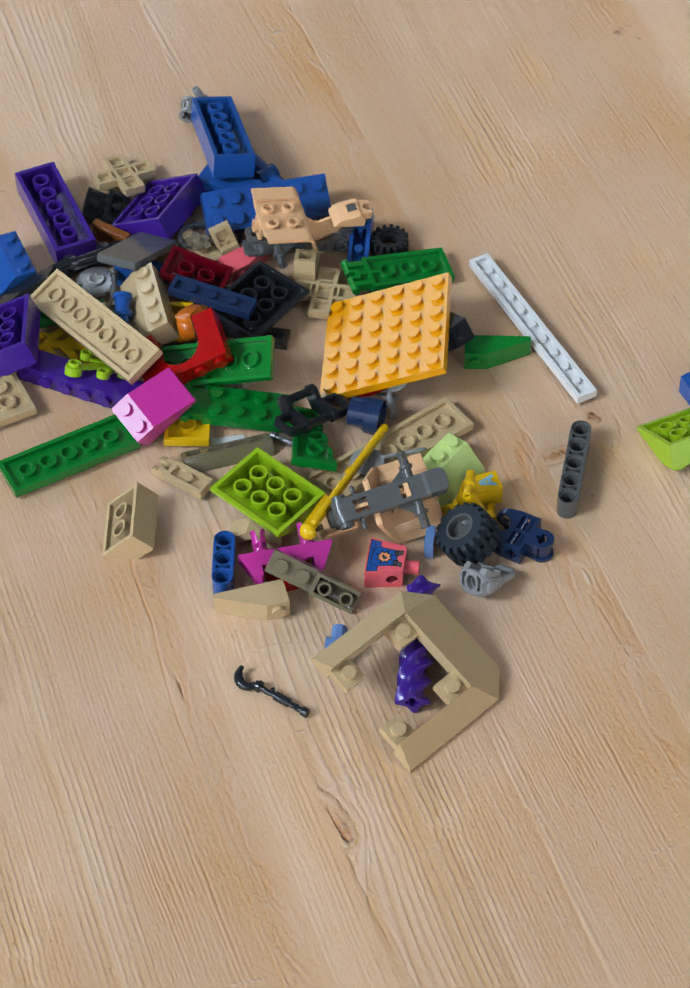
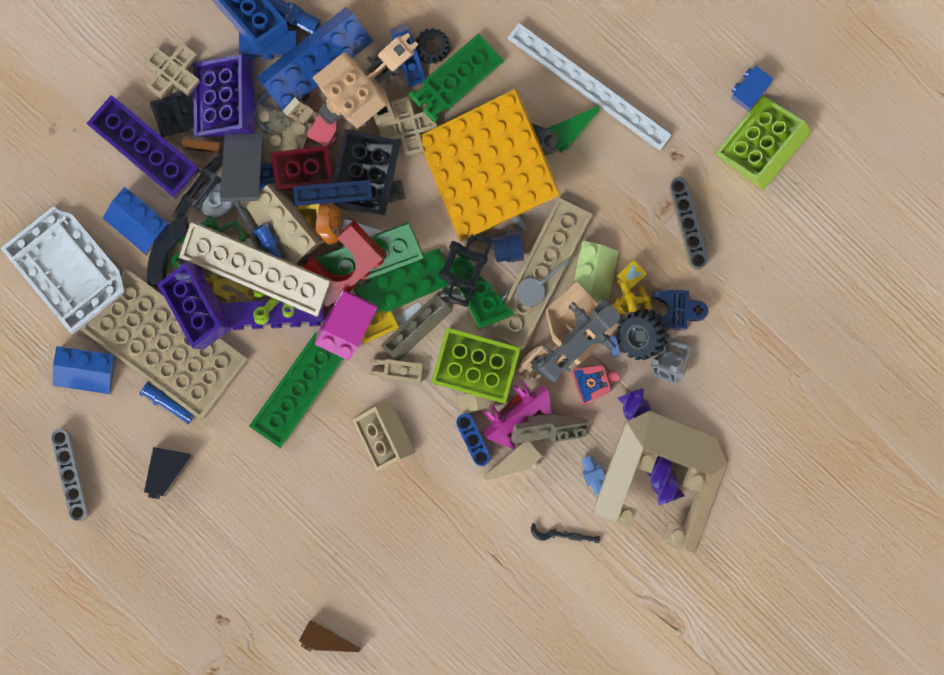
camera: 25 degrees left, 35 degrees up
(308, 528) = (527, 356): yellow bar -> none

